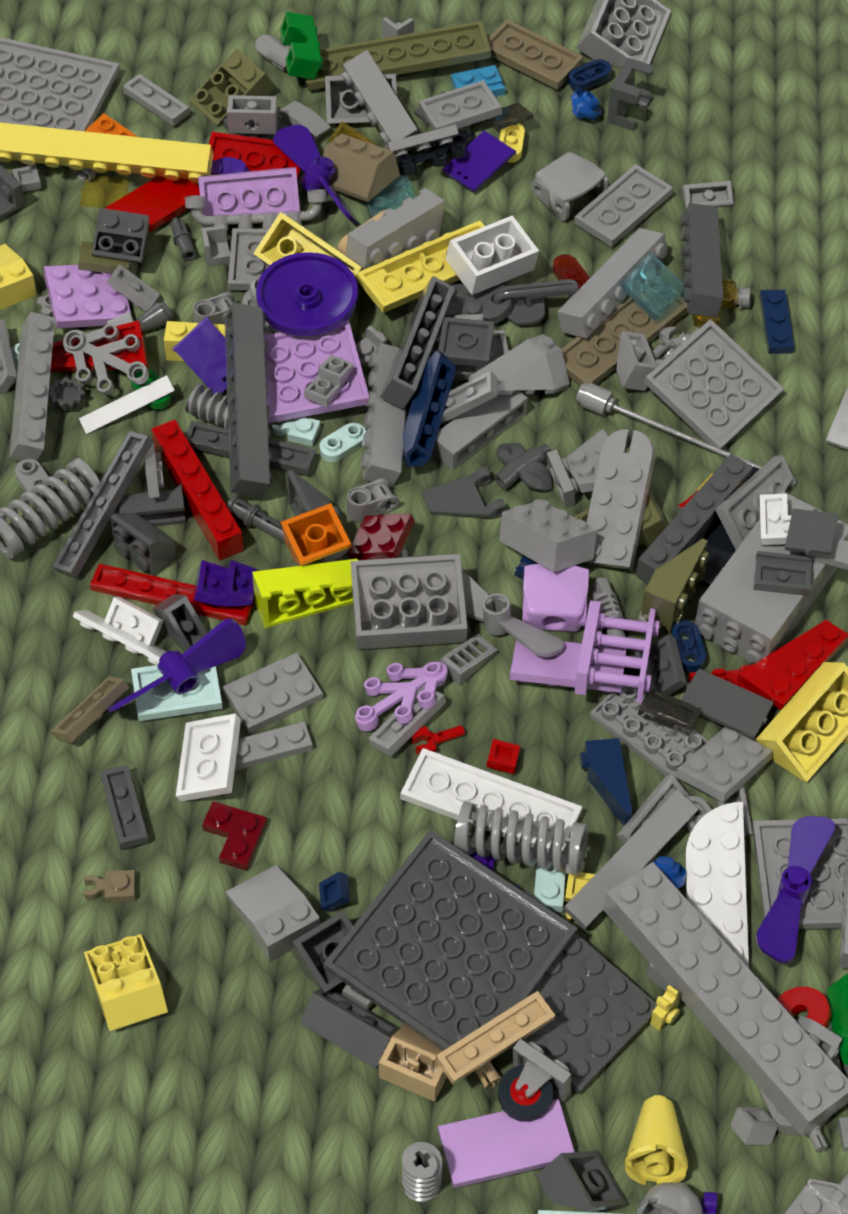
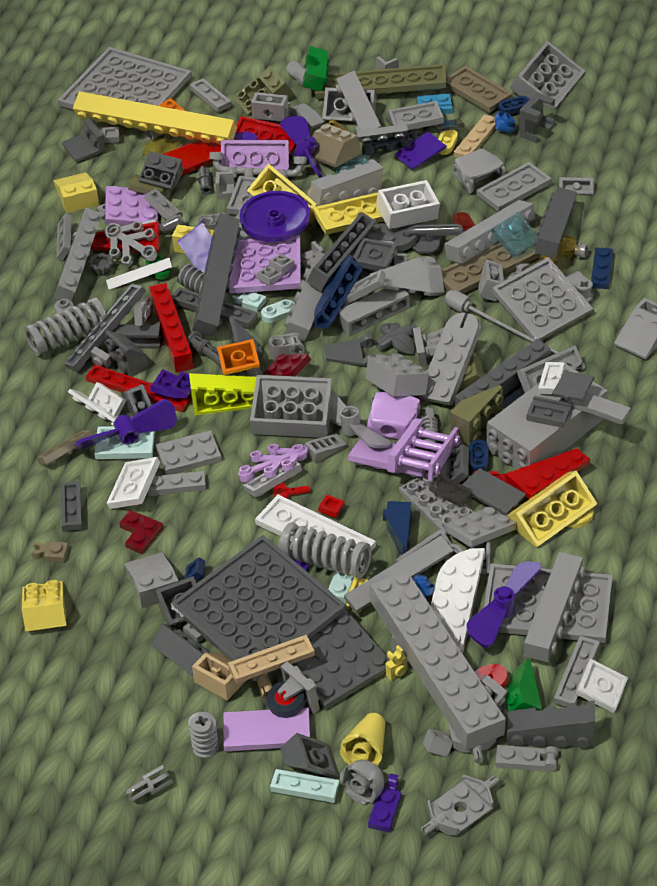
camera: 15 degrees right, 10 degrees down
(106, 553) = (100, 357): none -> light grey plate
(549, 131) = (476, 137): none -> tan plate
(759, 352) = (582, 284): none -> light grey piece

